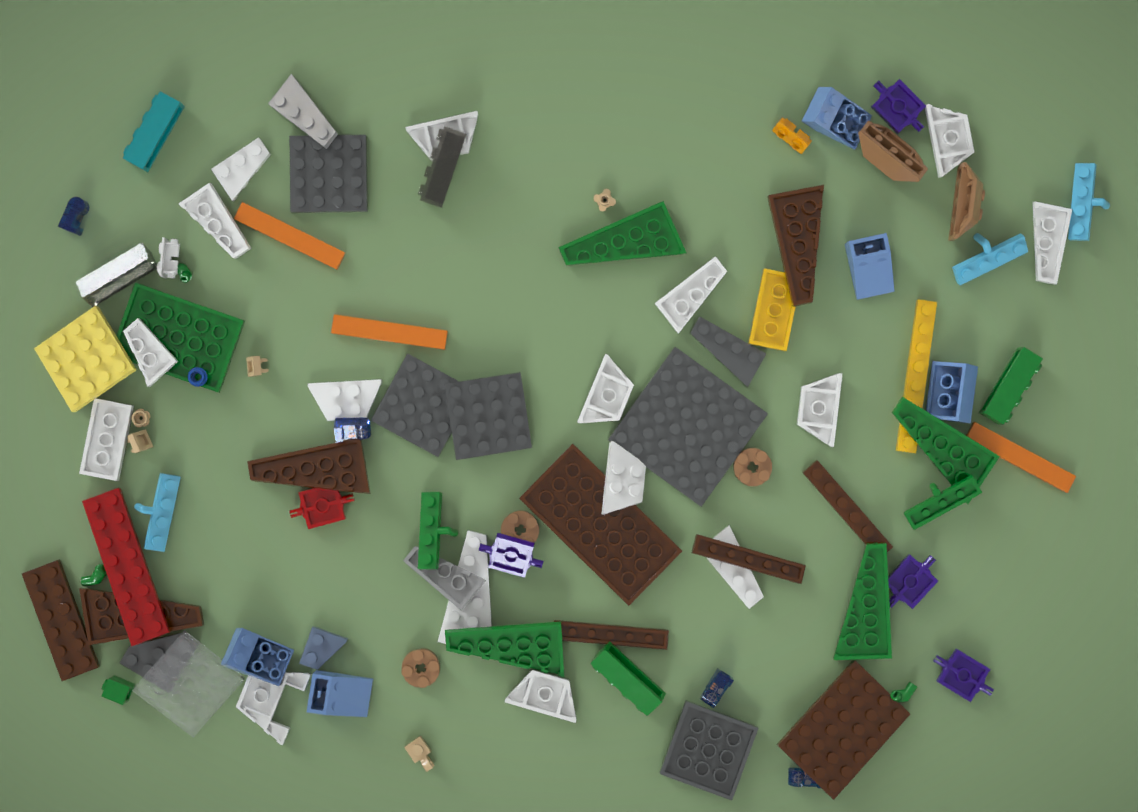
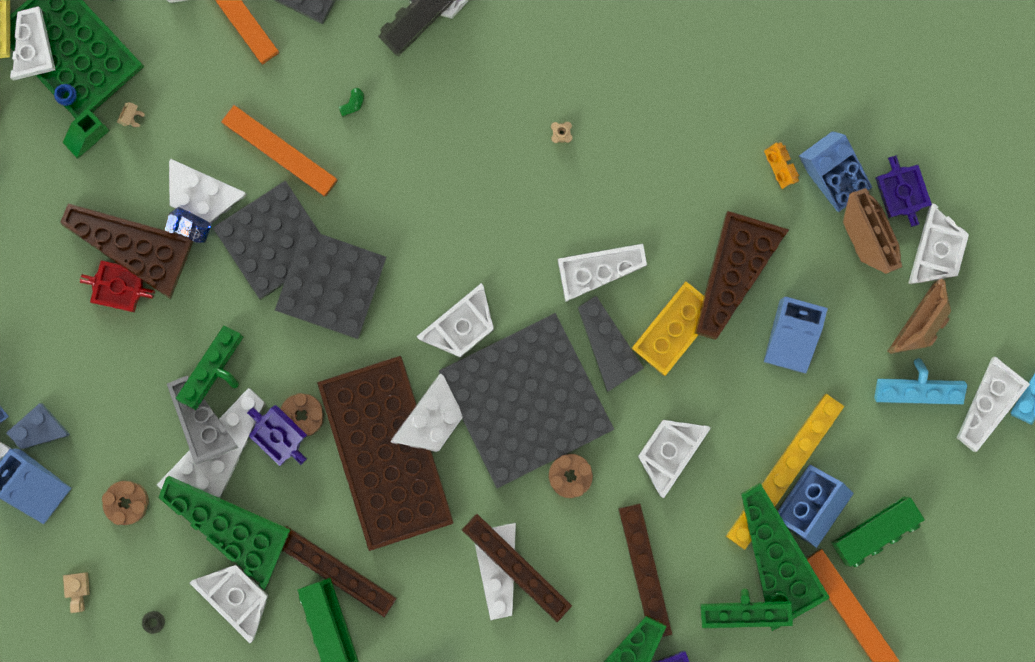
camera: 25 degrees right, 5 degrees down
(229, 399) = (84, 133): none -> green slope
(428, 262) = (355, 102): none -> green arm
(492, 752) = (146, 622): none -> clear smoke plate
(635, 237) = (572, 183): green wing -> none

